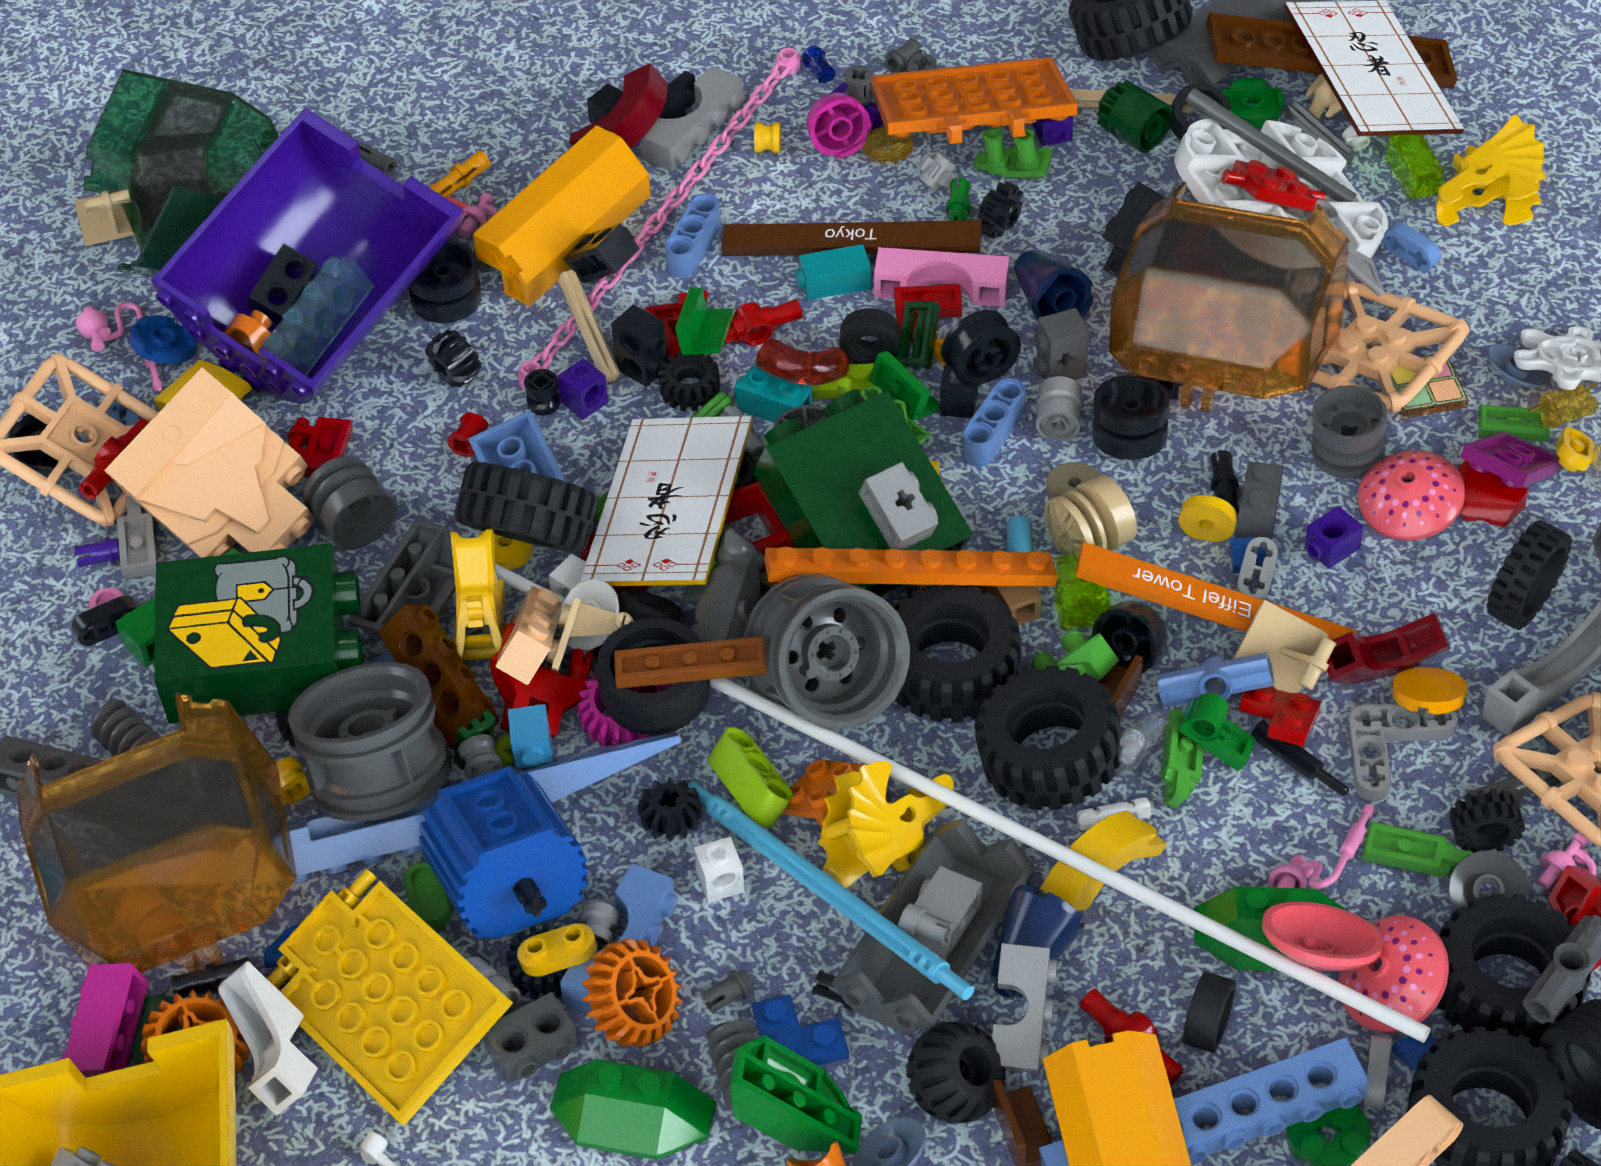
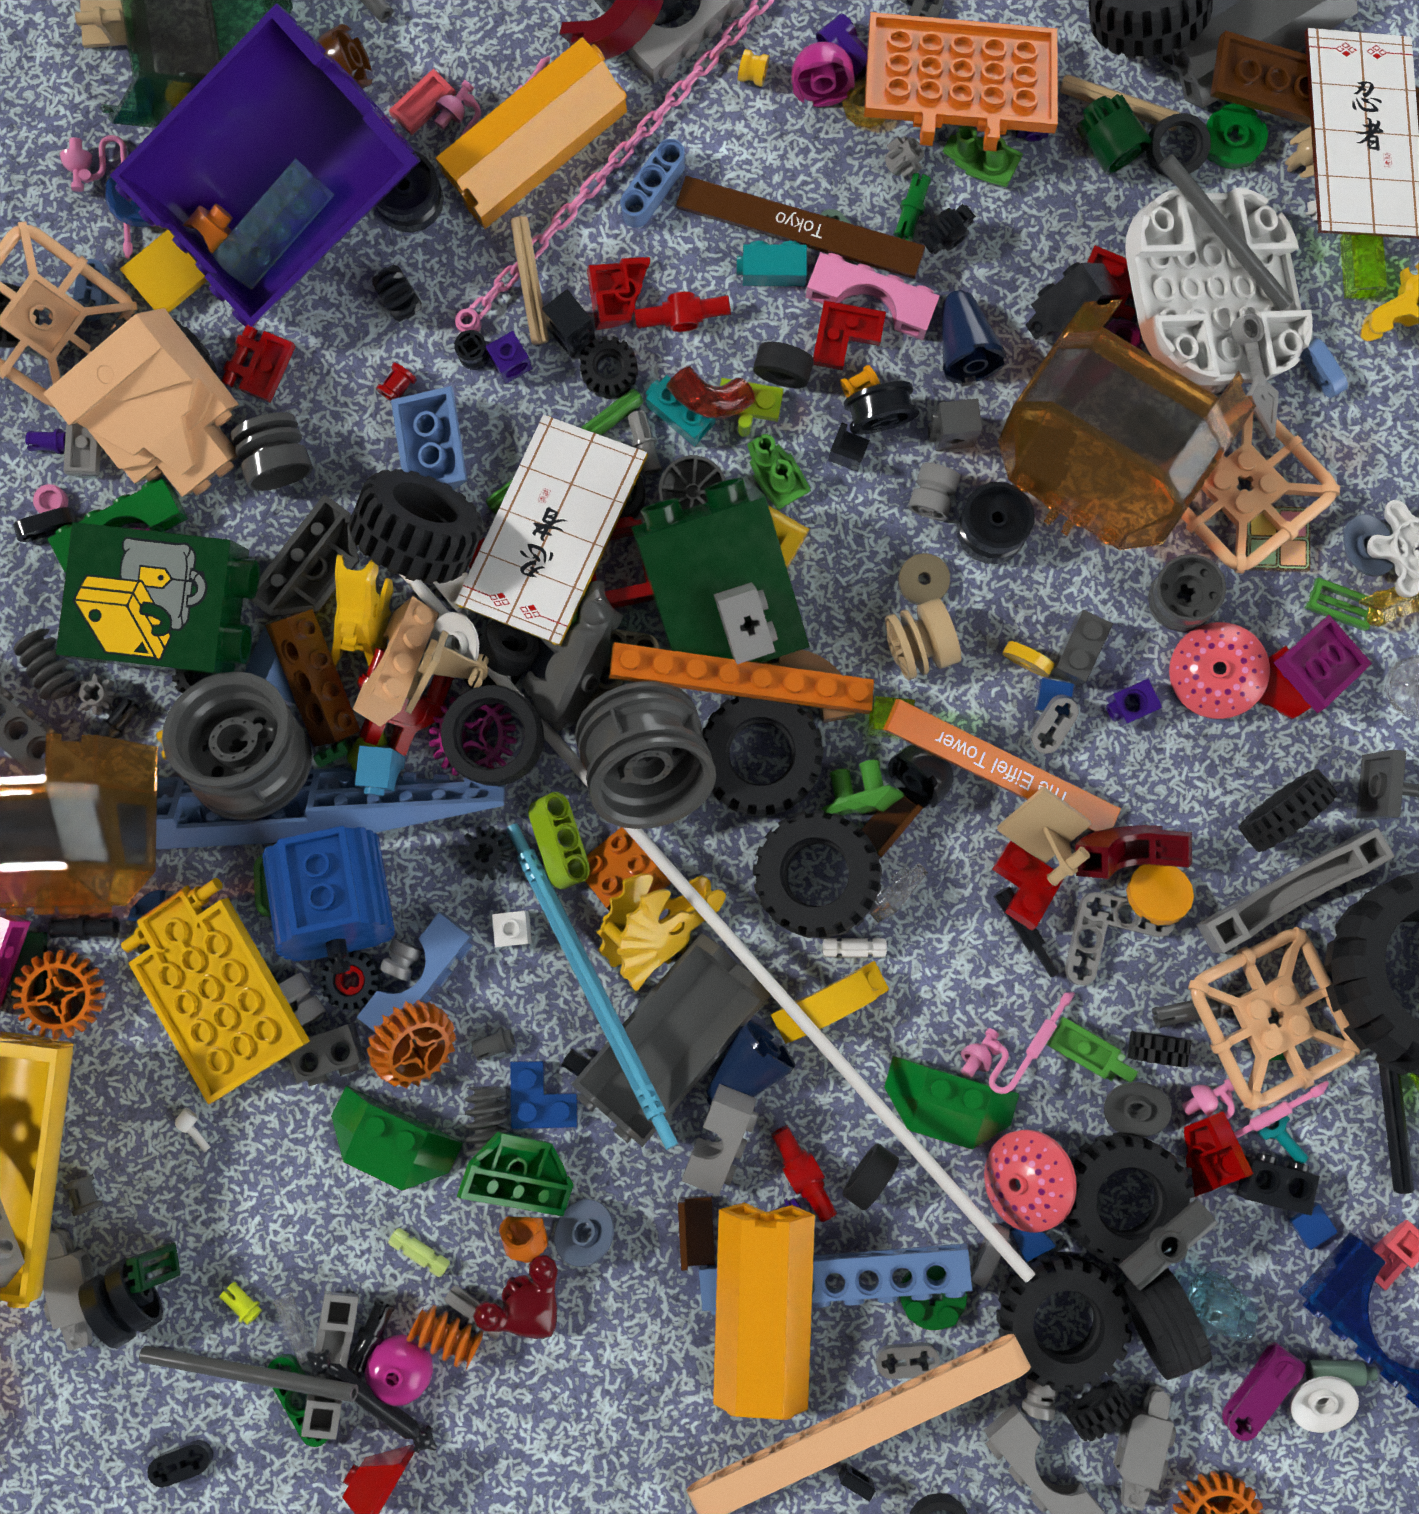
camera: 15 degrees right, 35 degrees up
(98, 478) = (69, 350): red pin -> none
(267, 1025) = (116, 1000): white arch -> none
(276, 282) = (240, 174): black brick -> none
(461, 174) = (447, 46): light orange pin -> none
(479, 755) = (330, 779): dark grey wheel -> none
(557, 949) = (357, 987): yellow plate -> none
(602, 253) = (559, 195): black brick -> none
(690, 662) = (521, 749): dark orange tile -> none
(701, 328) = (632, 315): green panel -> none
(858, 82) = (855, 33): dark grey bush -> none
(903, 386) = (801, 430): green panel -> none
(923, 334) = (839, 376): dark green tile -> none
(942, 911) = (678, 1032): light grey hinge -> none
(954, 1072) = (653, 1178): black wheel -> none
(993, 422) = (877, 476): medium blue beam -> none
(1019, 534) = (854, 641): medium azure cylinder -> none
(1180, 762) = (928, 906): bright green hinge -> none
(1208, 726) = (963, 896): green plate -> none
(1224, 481) = (1057, 613): black pin -> none
(1237, 676) = (979, 842): medium blue piece -> none
(1272, 185) = (1211, 292): red plate -> none
(1315, 128) = (1287, 191): dark grey axle -> none
(1322, 936) = (990, 1144): coral dish -> none
(1574, 450) = (1384, 659): yellow plate -> none

